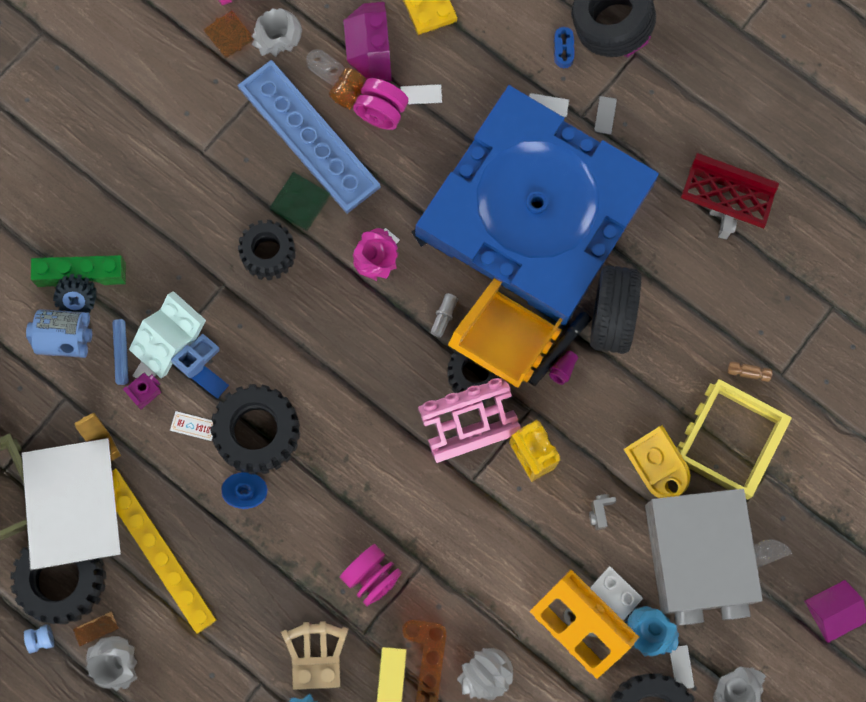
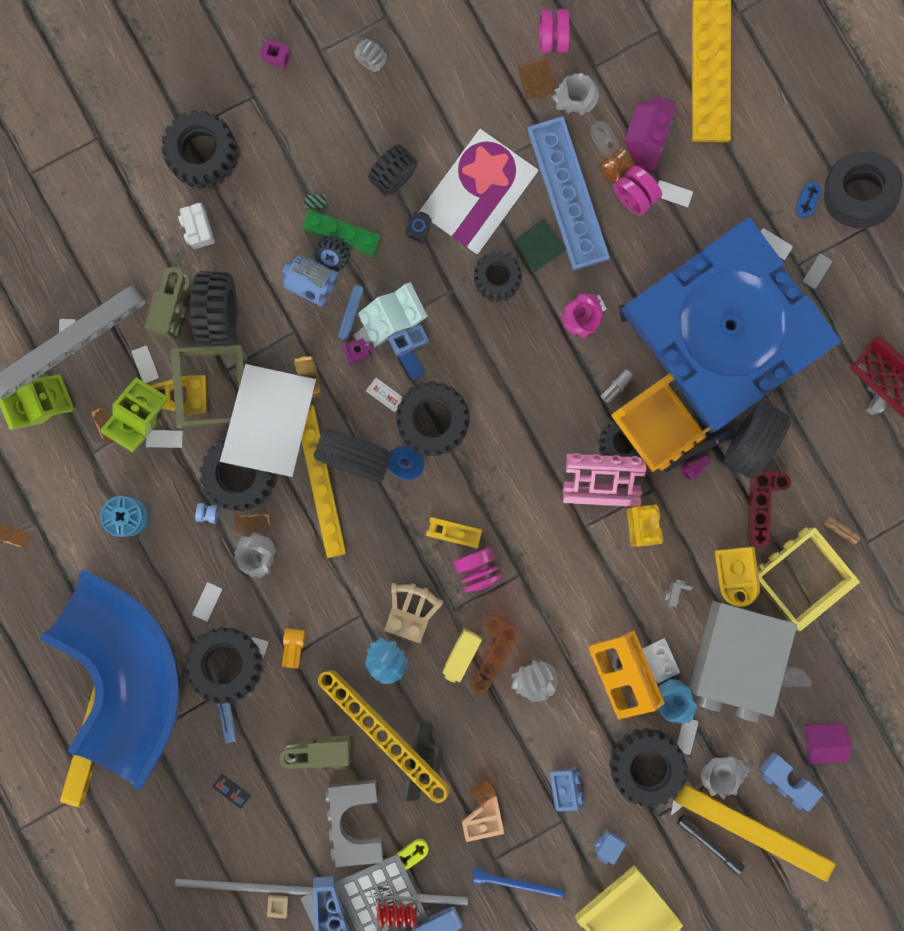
camera: 25 degrees right, 10 degrees up
(36, 249) = (315, 201): none -> clear green sticker
(39, 74) = (370, 55): none -> light grey gear
(108, 182) = (392, 170): none -> black tyre
(161, 231) = (419, 226): none -> black brick
(180, 502) = (352, 455): none -> black tyre
(211, 171) = (478, 191): none -> sticker
(329, 546) = (454, 532): none -> yellow plate
(657, 383) = (764, 509): none -> dark red beam
(836, 677) = (802, 793): none -> medium blue arch

